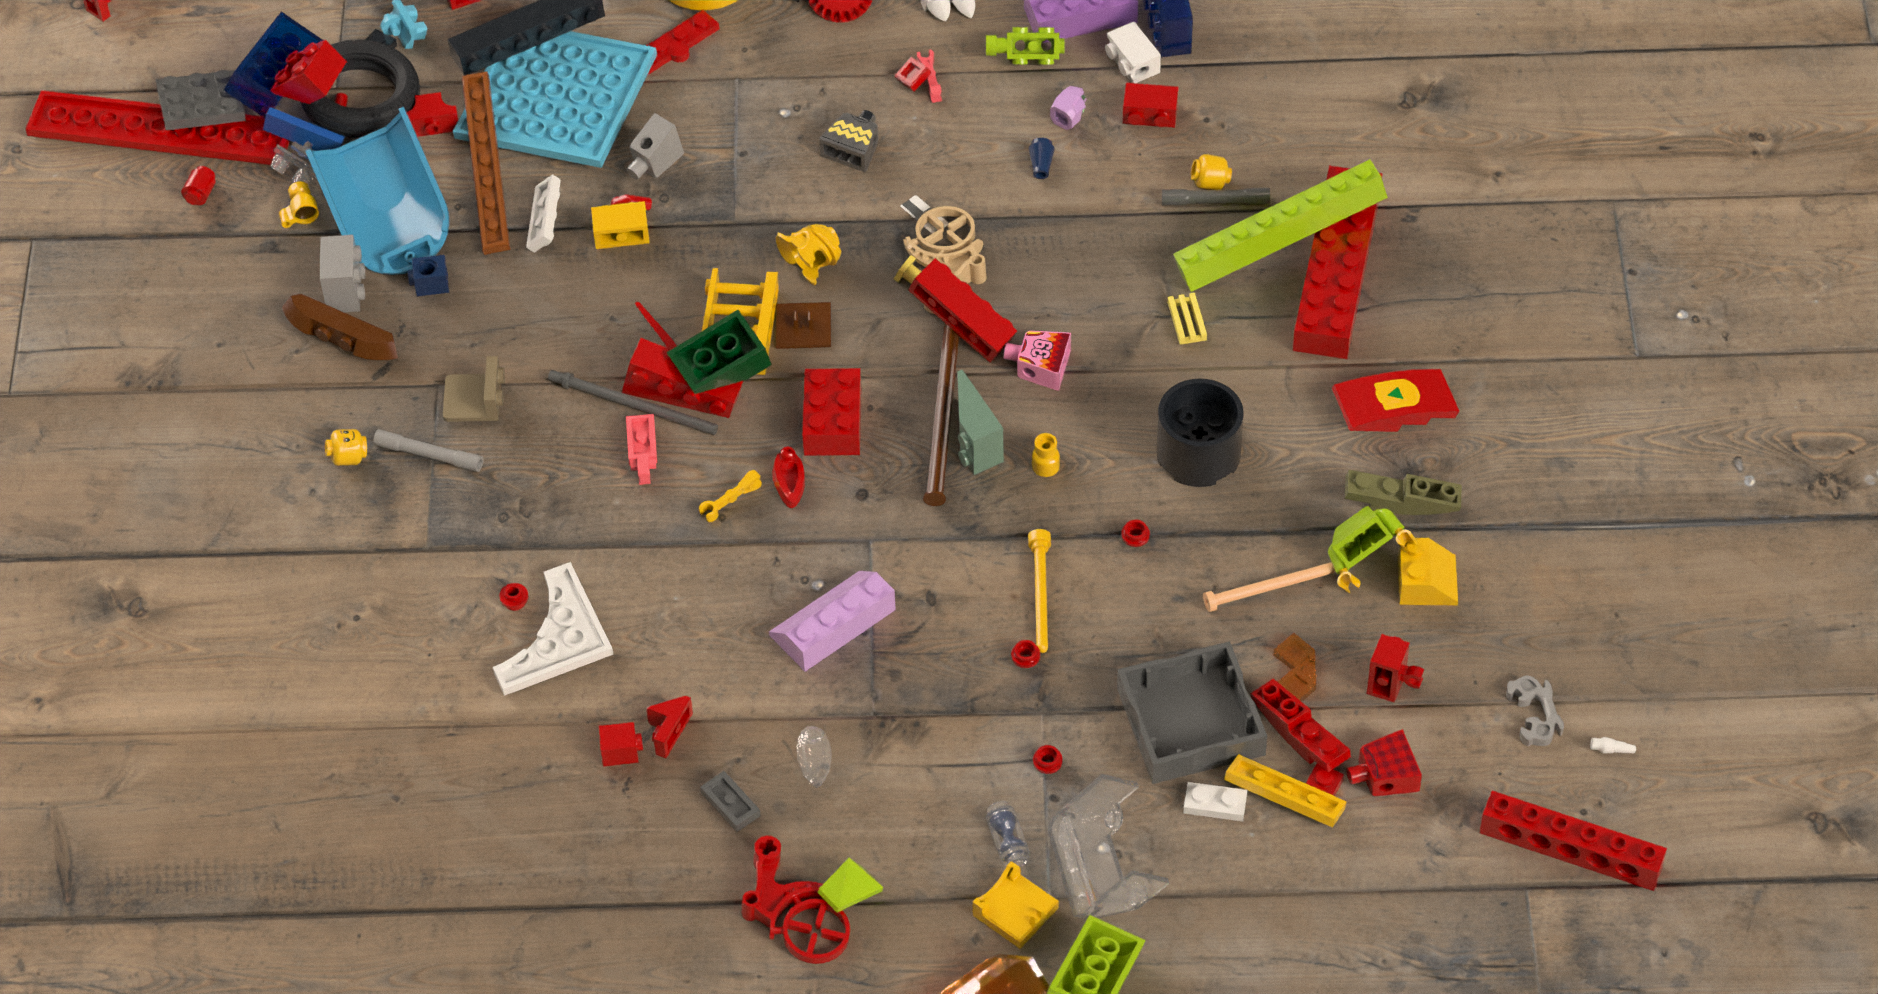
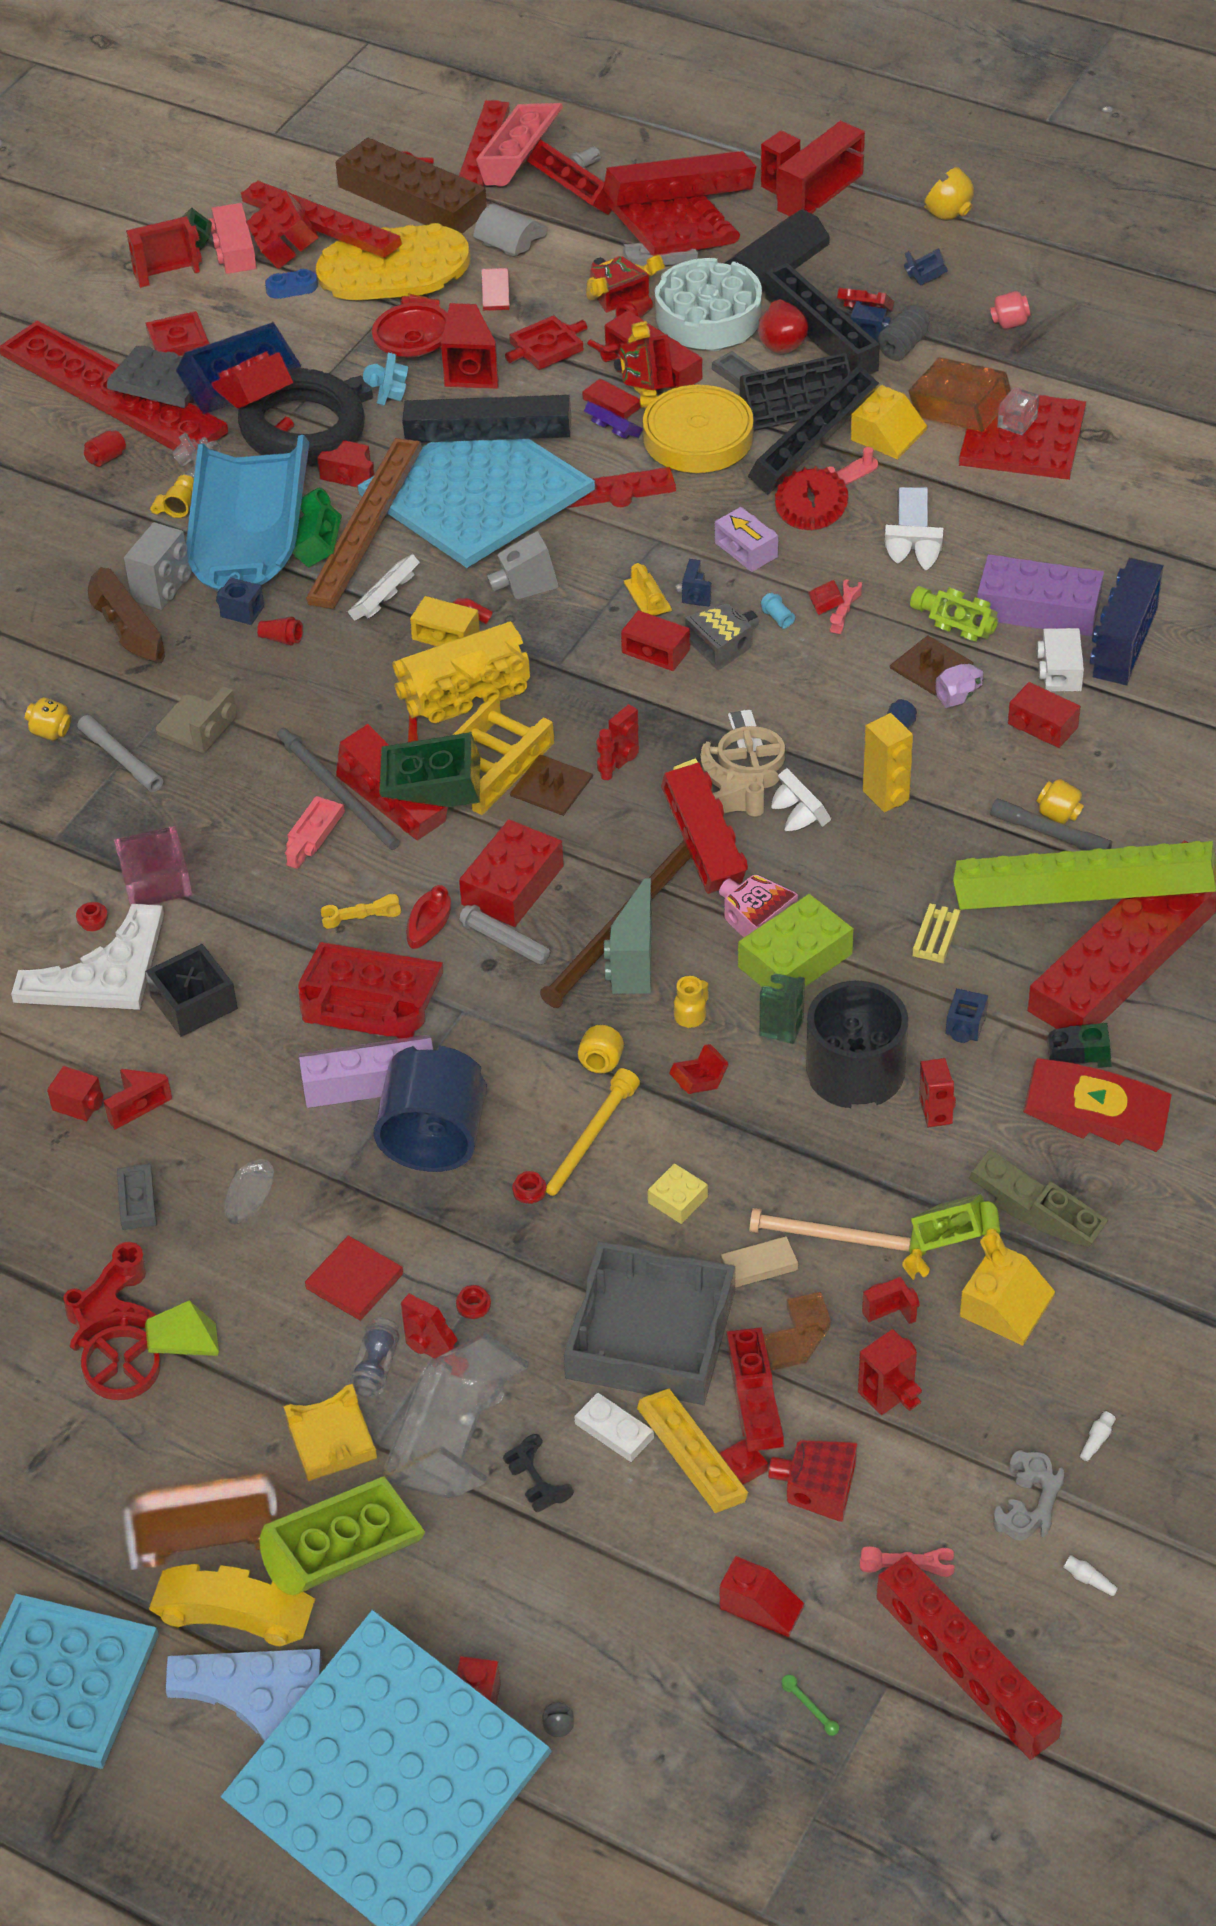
camera: 30 degrees right, 5 degrees down
(177, 53) = (177, 333): none -> red tile
(301, 131) = (219, 430): blue tile -> none
(453, 183) = (317, 528): none -> green hinge
(485, 286) = (281, 630): none -> red cone
(540, 533) = (153, 866): none -> clear pink brick
(651, 619) = (191, 989): none -> black brick
(665, 264) = (449, 676): none -> yellow brick
(764, 129) = (646, 591): none -> yellow hinge
(787, 557) = (367, 990): none -> red plate
(800, 109) = (694, 587): none -> dark blue bracket
(803, 167) = (655, 640): none -> red brick
(810, 249) = (596, 709): yellow helmet -> none
(813, 49) = (746, 539): none -> lavender brick
(843, 268) = (618, 742): none -> red plate
(860, 465) = (473, 917): none -> light grey axle
(874, 98) = (773, 605): none -> medium azure pin
(921, 627) = (430, 1109): none -> dark blue brick
(943, 783) = (354, 1277): none -> red tile
(1004, 522) = (600, 1049): none -> yellow head
(1023, 257) = (806, 811): none -> white tile
(1030, 98) = (926, 662): none -> reddish brown piece
(1038, 795) = (426, 1327): none -> red wing
(1071, 196) = (887, 762): none -> yellow brick
(1092, 505) = (700, 1073): none -> red bracket
(1094, 377) = (797, 942): none -> lime brick
(1124, 429) = (782, 1008): none -> clear green hinge
(1135, 527) = (726, 1112): red plate -> none
(1138, 607) = (677, 1193): none -> light yellow piece
(1168, 853) = (542, 1494): none -> black piece
(1235, 628) = (761, 1261): none -> tan tile
(1258, 379) = (966, 1023): none -> dark blue brick
(1279, 443) = (936, 1092): none -> red piece
(1350, 610) = (889, 1298): none -> red bracket
(1354, 360) = (1081, 1044): none -> leg
(1404, 870) = (759, 1597): none -> red slope
(1462, 920) = (789, 1684): none -> bright green hinge
(1463, 806) = (873, 1560): none -> coral piece
(1553, 643) = (1098, 1434): none -> white piece

